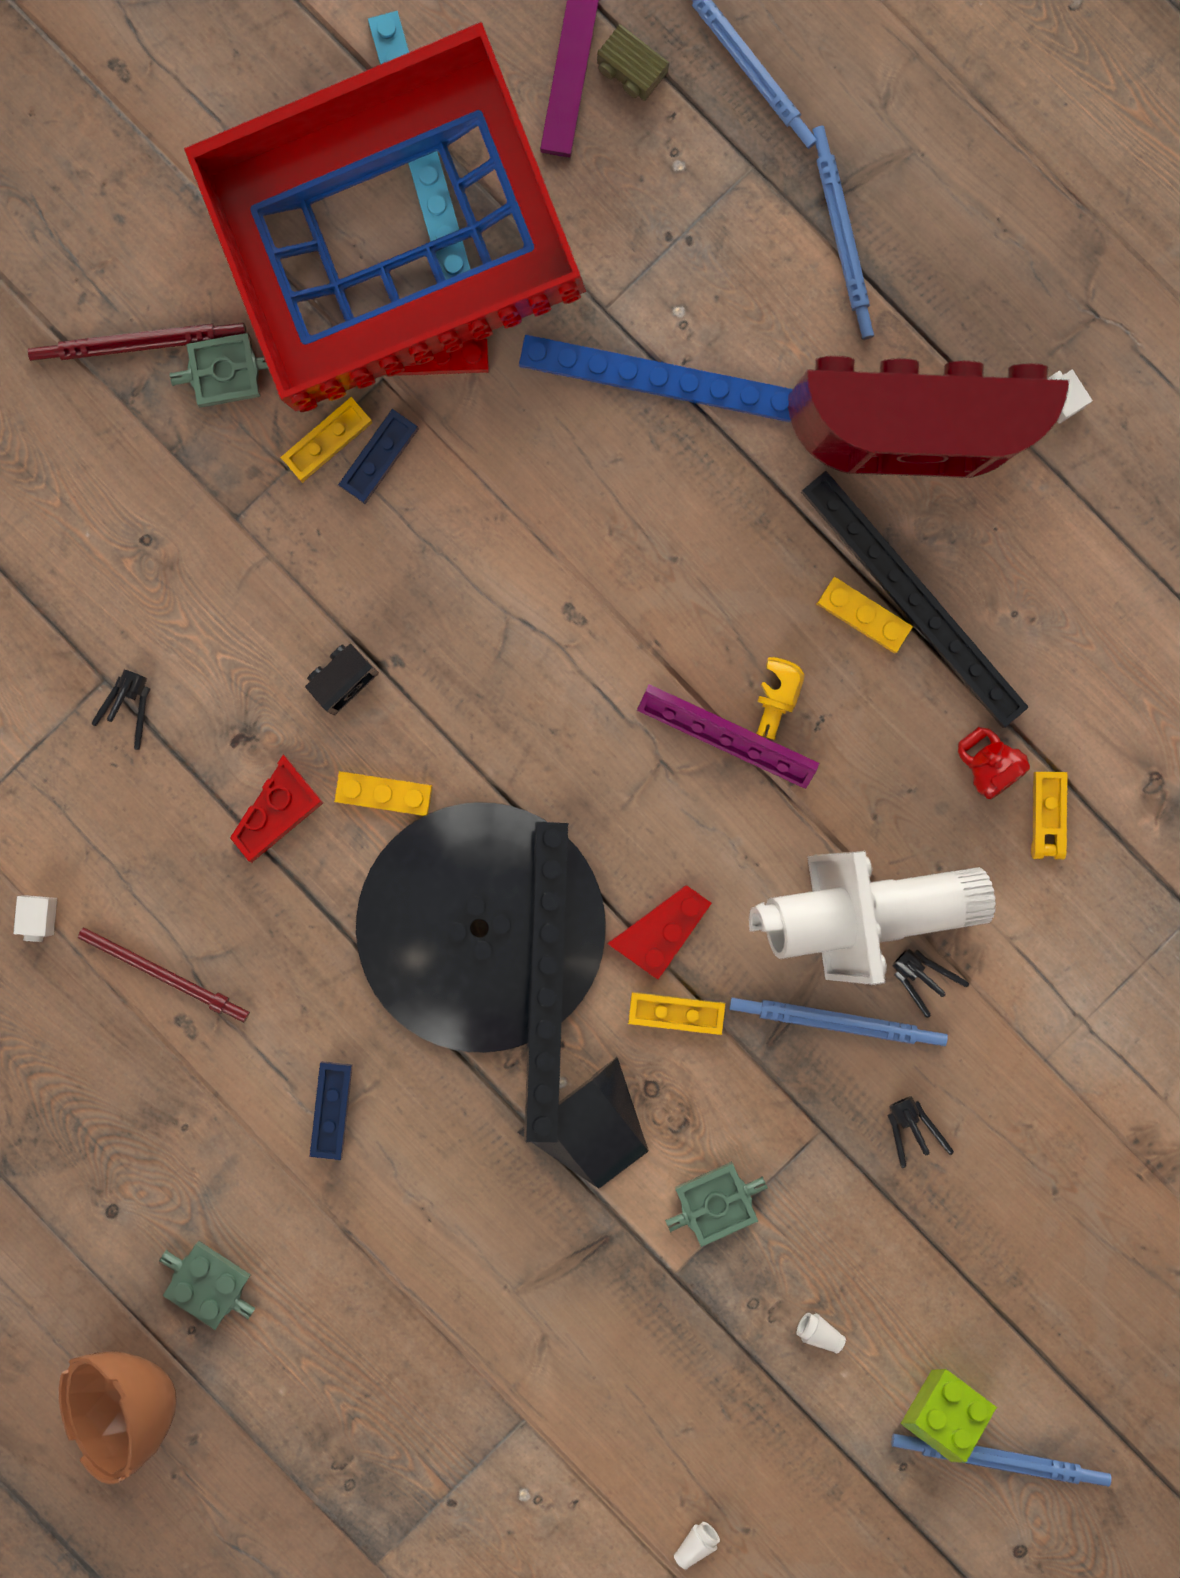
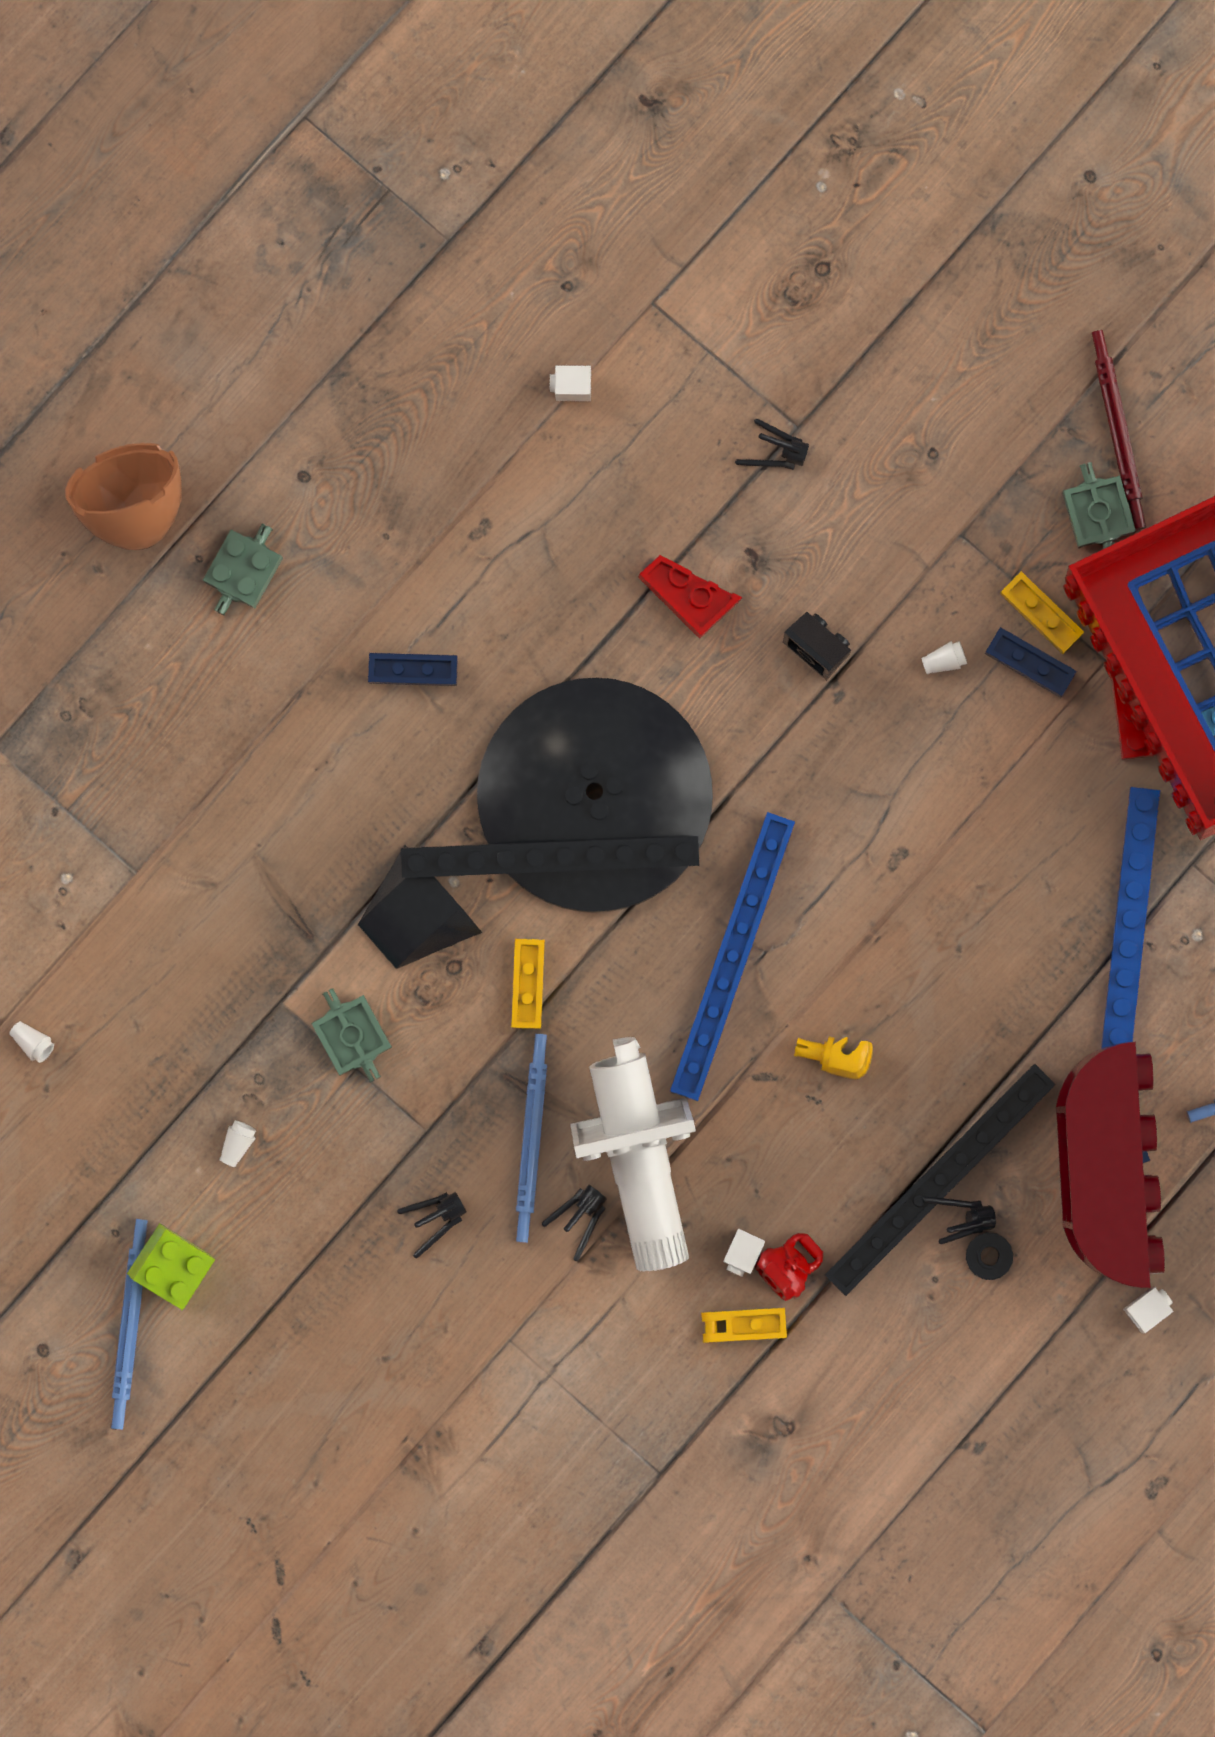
camera: 95 degrees right, 5 degrees down
(217, 1002) = (505, 555): dark red bar -> none
(367, 545) = (945, 658): none -> white cone
(383, 793) = (712, 693): yellow plate -> none
(662, 932) = (604, 965): red wing -> none
(664, 795) = (732, 956): none -> blue plate
(727, 736) = (793, 1011): magenta tile -> none
(864, 615) = (921, 1134): yellow plate -> none
(959, 564) = (977, 1219): none -> black plant
(975, 809) = (743, 1253): none -> white brick
(983, 563) = (985, 1271): none -> black piece

